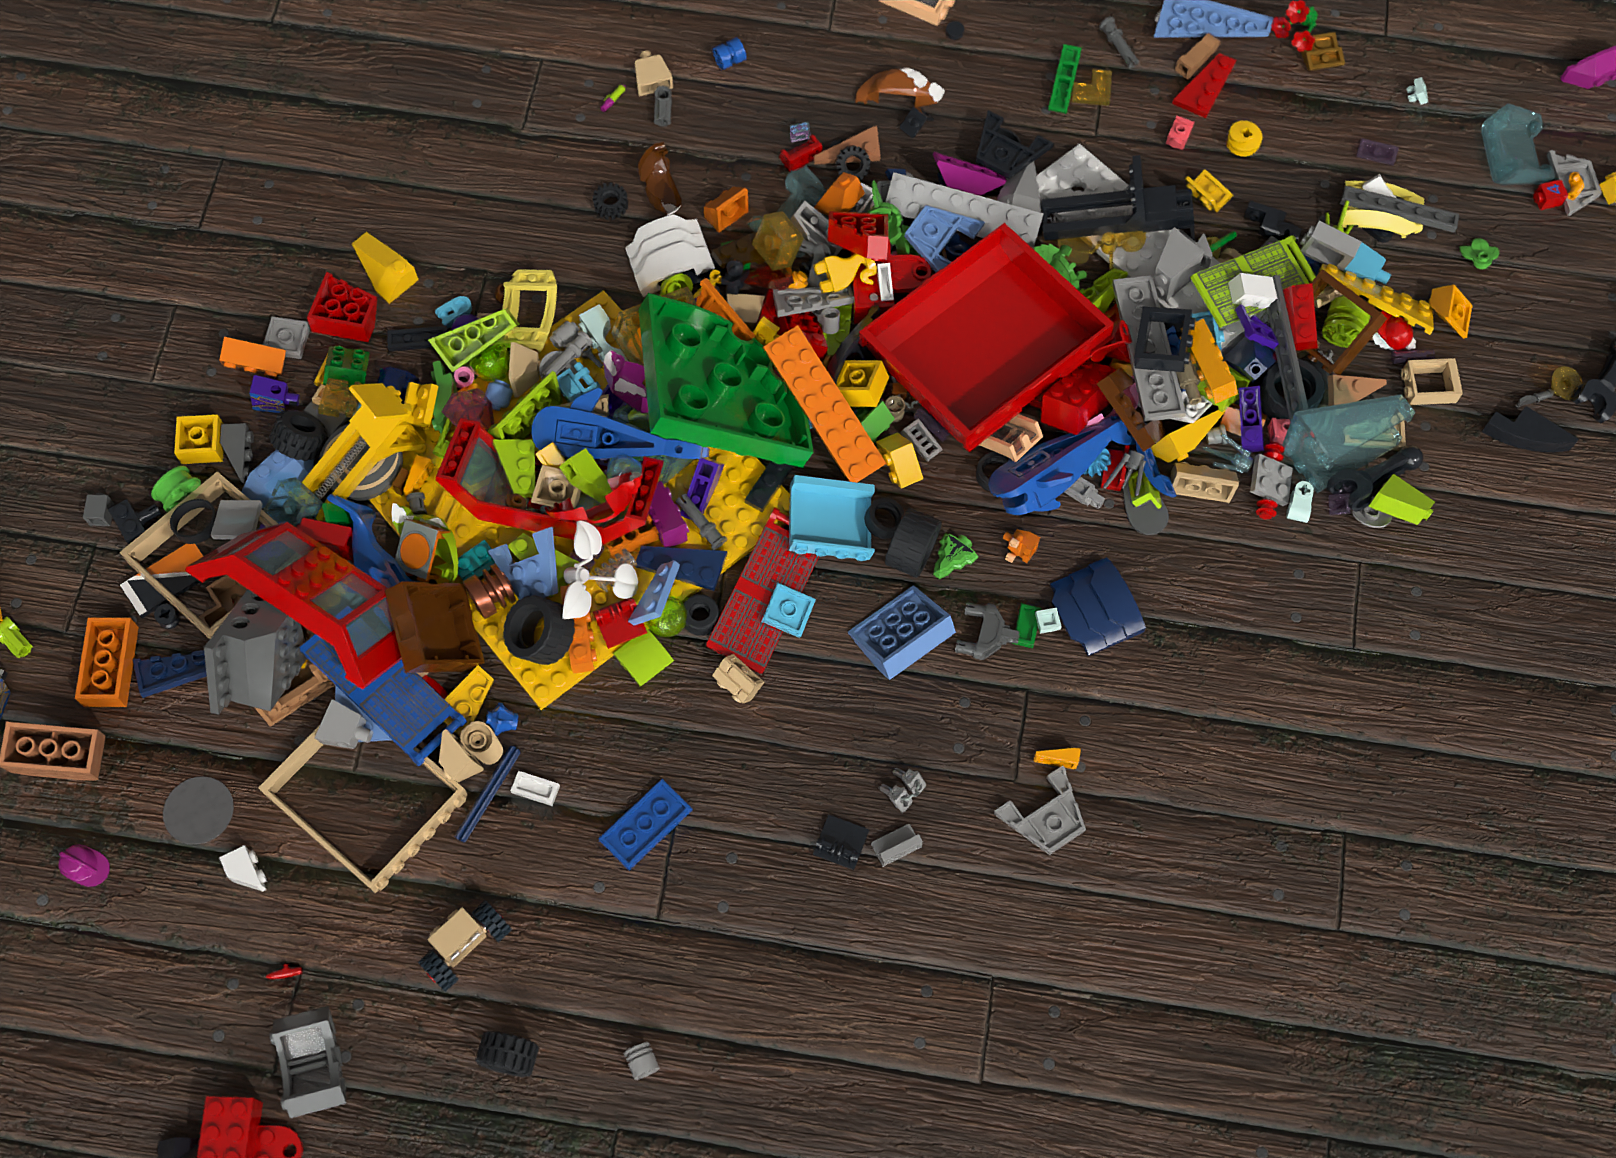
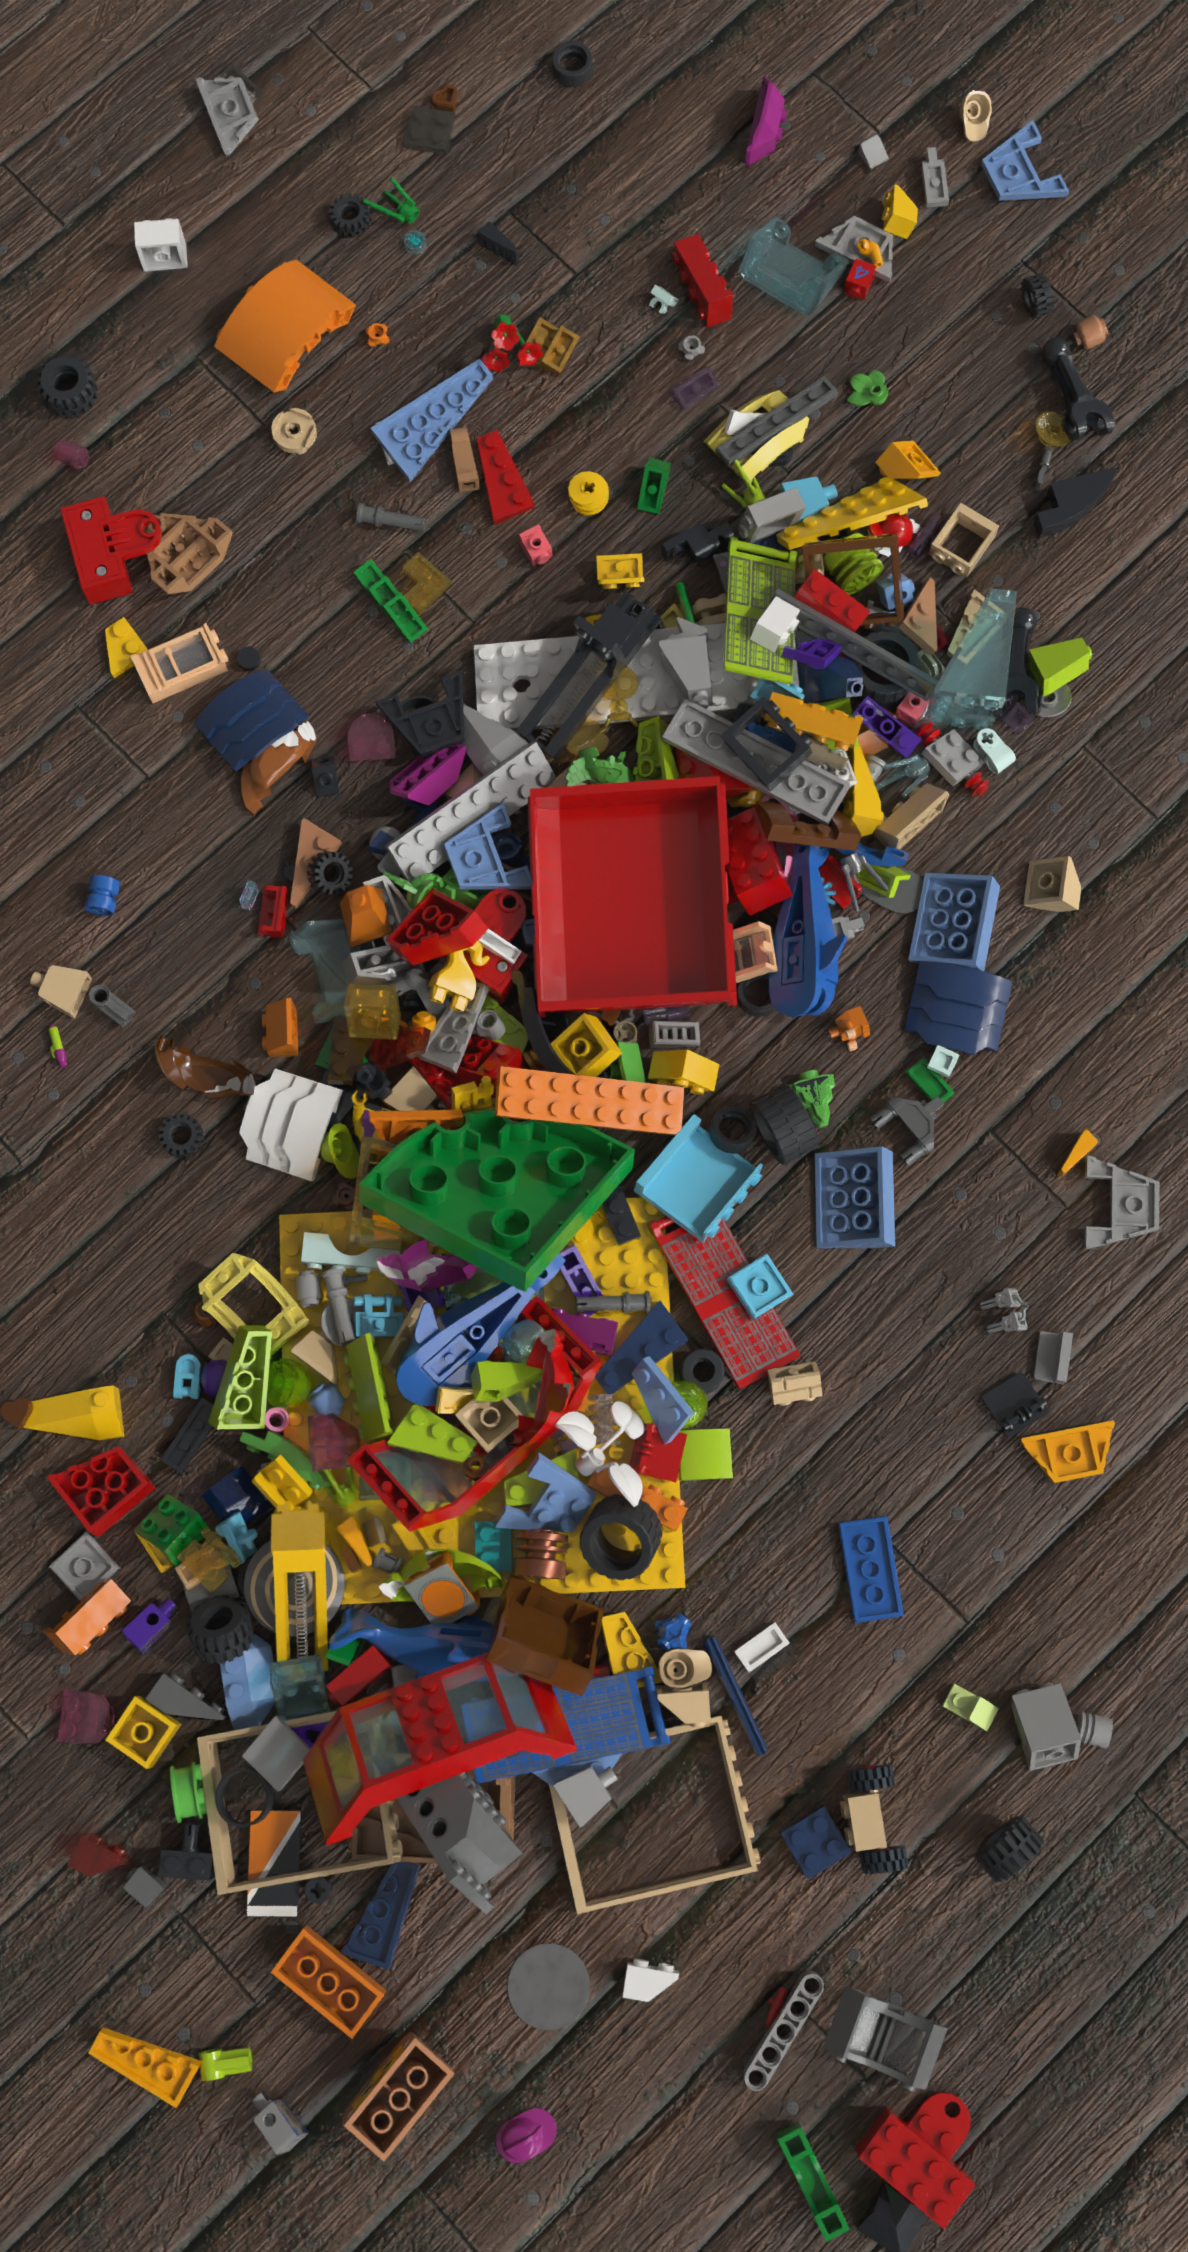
camera: 50 degrees left, 10 degrees up
(98, 468) = (94, 1856): none -> clear red slope
(184, 1061) = (812, 2181): none -> green arch
(186, 400) = (85, 1717): none -> clear pink slope
(258, 985) = (782, 2044): none -> light grey beam
(358, 232) = (17, 1411): none -> reddish brown tile
(419, 915) = (815, 1841): none -> dark blue brick
(431, 486) = (374, 1532): none -> dark tan slope
(595, 962) = (970, 1707): none -> yellowish green slope
(618, 1023) = (1045, 1726): none -> light grey slope
(837, 905) = (1071, 1452): none -> light orange wing
(916, 50) = (249, 718): none -> dark blue slope
(963, 129) = (371, 738): none -> clear pink slope
(1099, 354) = (739, 776): red piece -> none
(1157, 561) = (955, 919): none -> medium blue slope
(1239, 608) = (1052, 885): none -> tan slope
(1286, 171) = (654, 485): none -> green slope
(1362, 367) = (886, 591): none -> medium blue brick
(1402, 130) = (691, 341): none -> light grey plate
(1454, 103) = (702, 278): none -> red wedge

